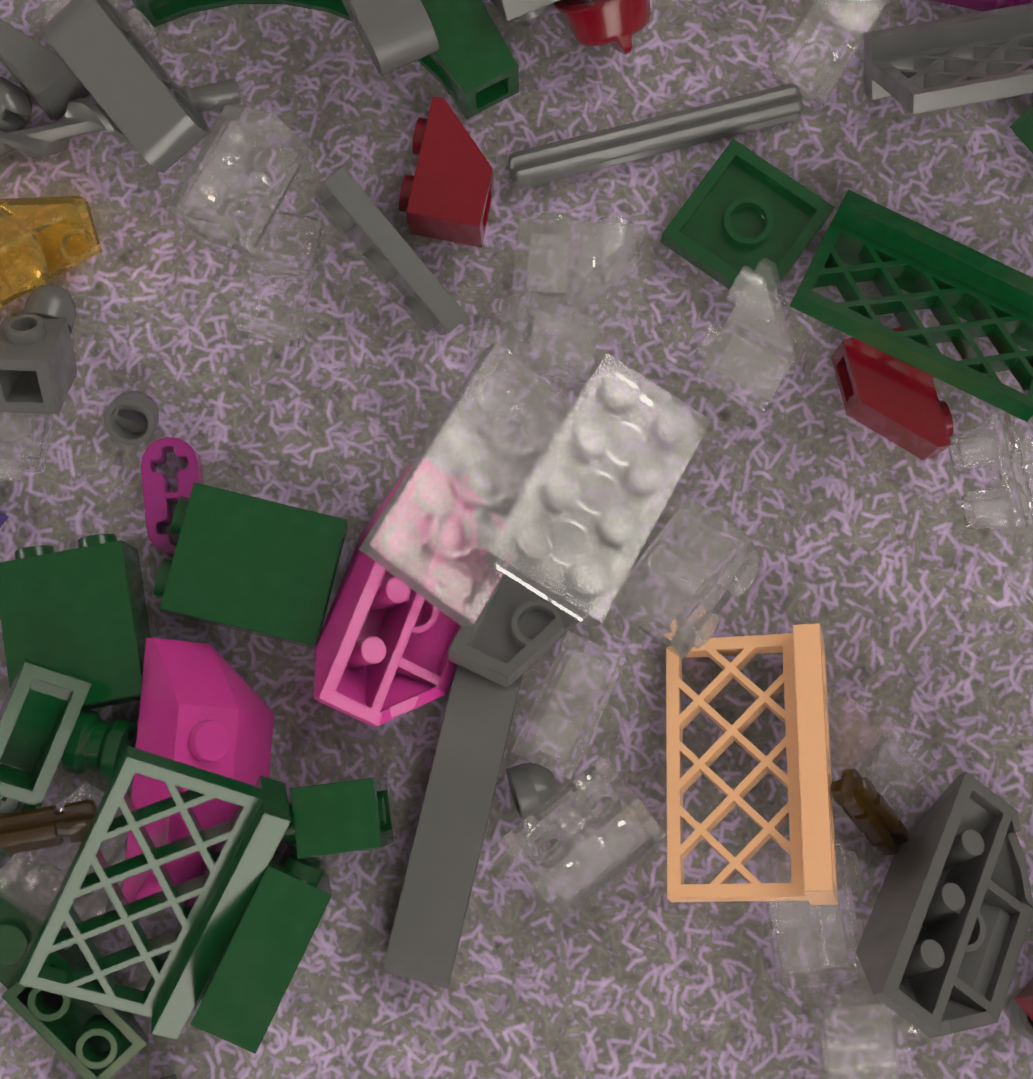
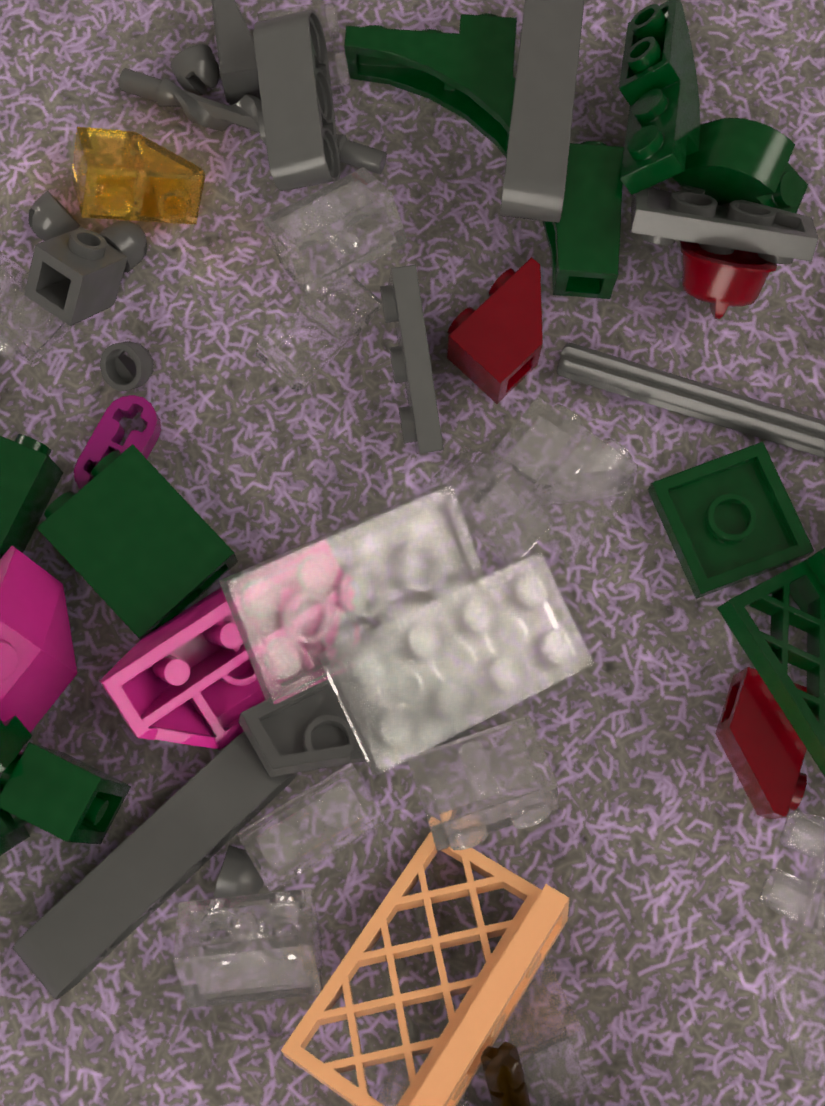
camera: 30 degrees right, 5 degrees down
(755, 343) = (671, 622): clear slope -> none

